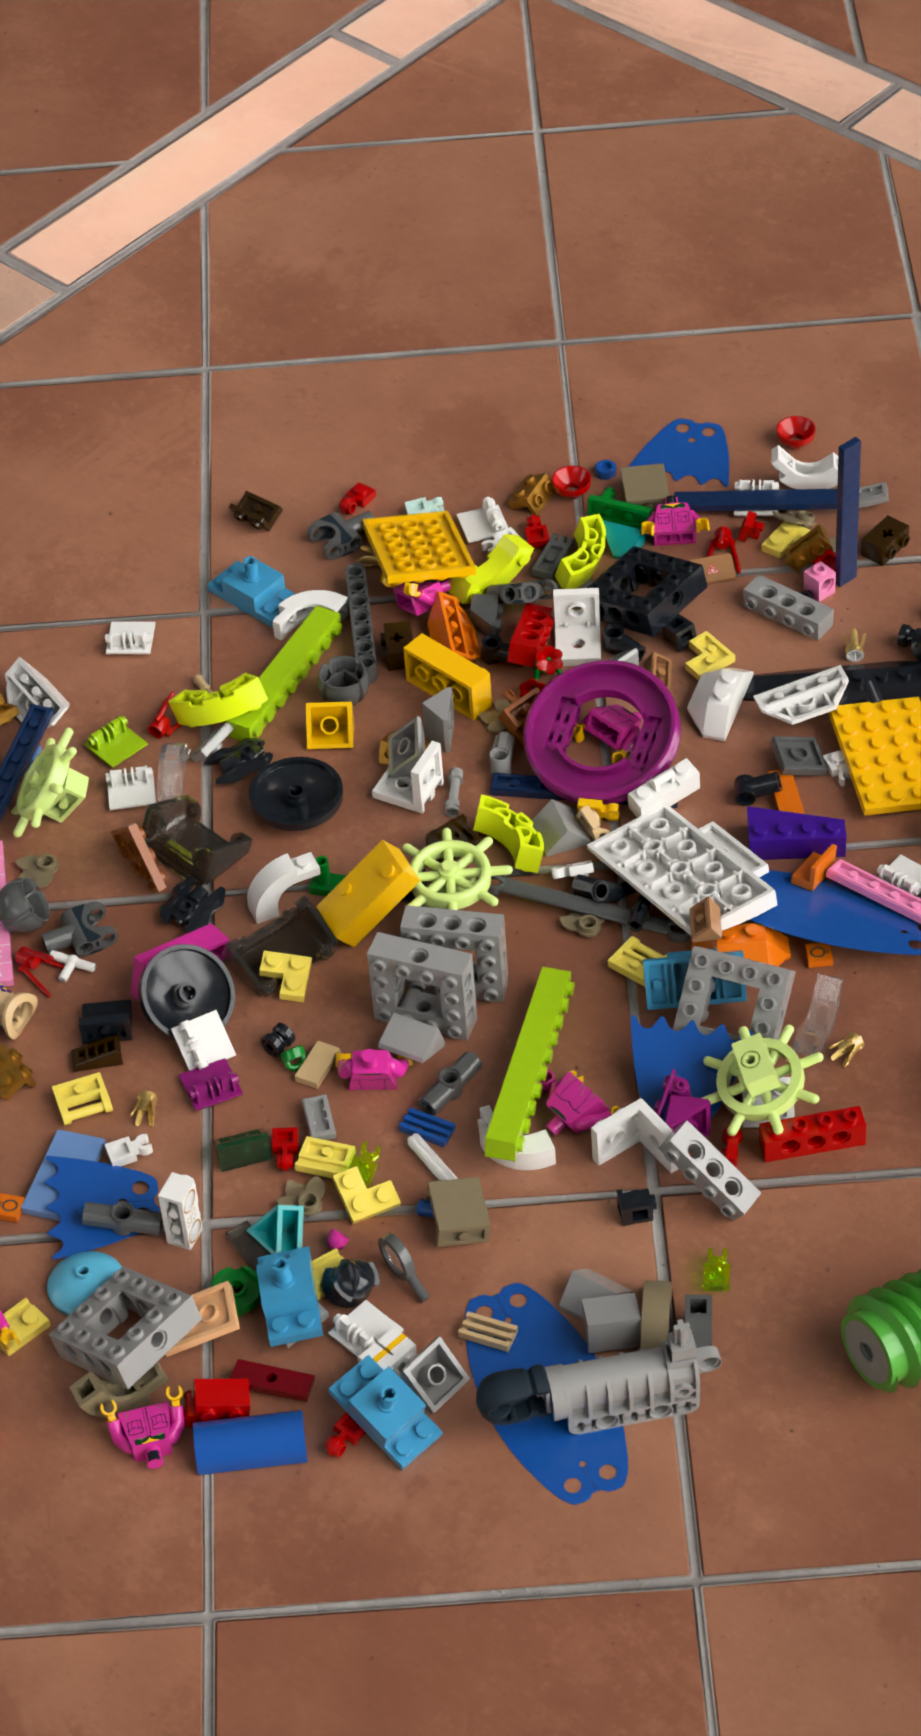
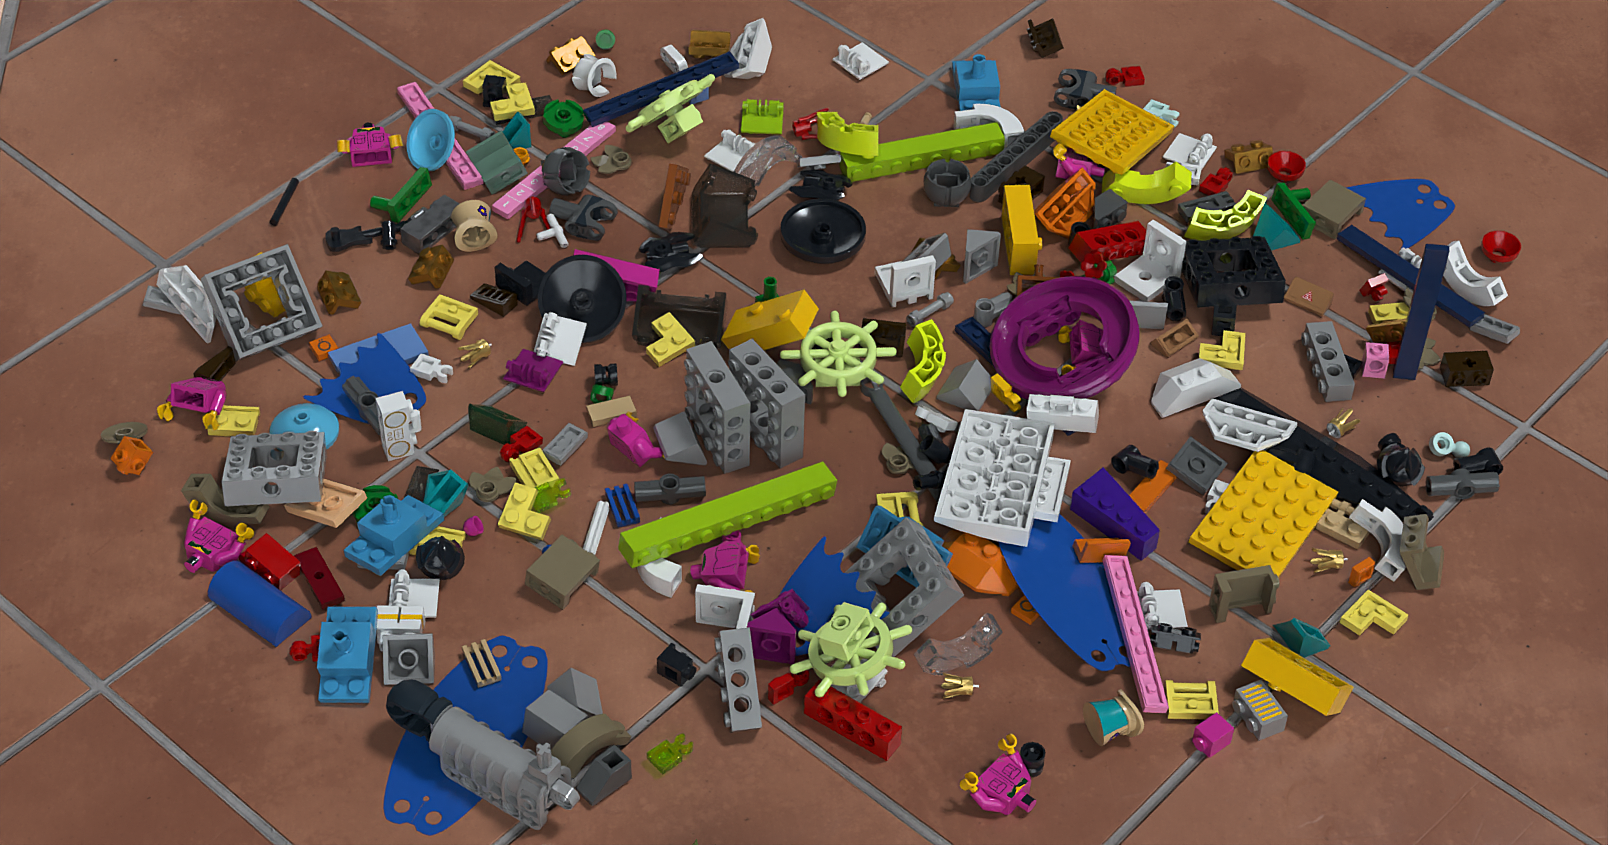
camera: 40 degrees right, 0 degrees up
(274, 880) = (730, 269): white arch -> none
(330, 725) = (905, 205): yellow slope -> none
(401, 1263) = (482, 573): dark grey piece -> none
(522, 591) = (1145, 212): dark grey connector -> none
(591, 822) = (988, 395): tan plate -> none
(605, 469) = (1326, 174): blue tile -> none
(674, 523) = (1318, 243): dark pink torso -> none
(705, 921) = (952, 513): medium nougat slope -> none
(723, 540) = (1343, 282): red plant -> none

